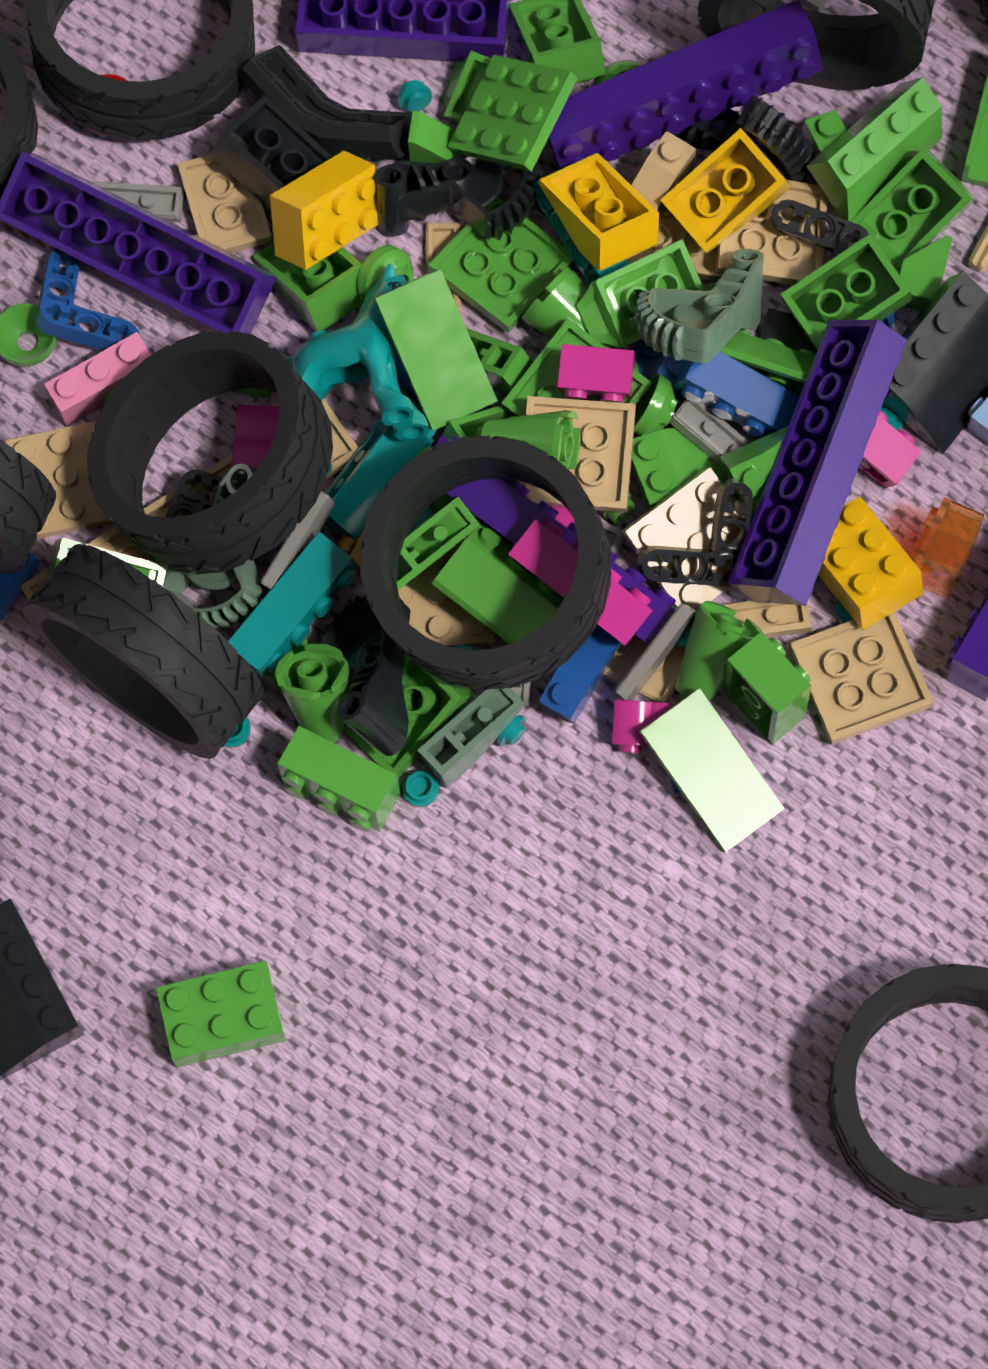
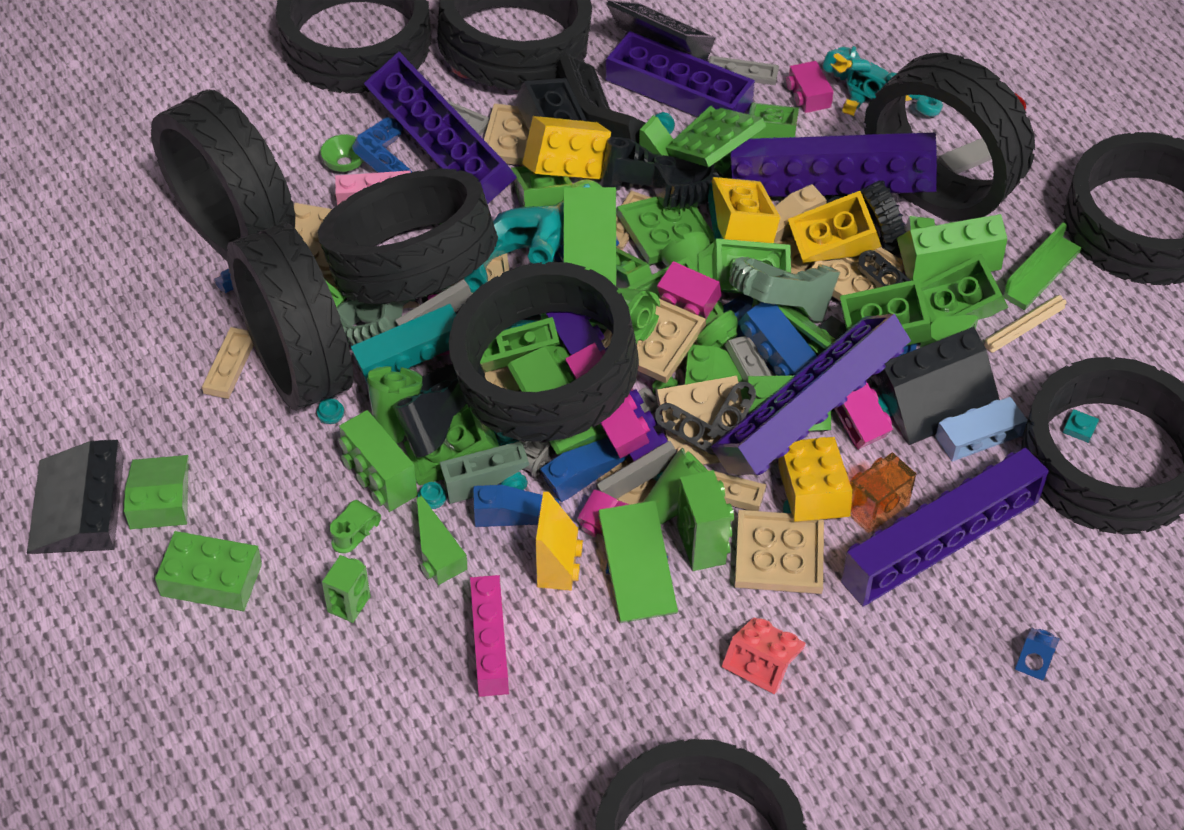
camera: 20 degrees right, 20 degrees down
(67, 719) = (228, 363): none -> tan plate
(90, 934) = (157, 492): none -> bright green slope
(354, 870) = (353, 526): none -> bright green piece
(399, 964) = (346, 588): none -> bright green brick
(469, 857) = (440, 551): none -> bright green slope
(527, 760) = (505, 506): none -> blue slope
(590, 942) = (489, 636): none -> dark pink brick
(613, 799) = (556, 547): none -> yellow slope
(905, 817) = (762, 653): none -> coral bracket

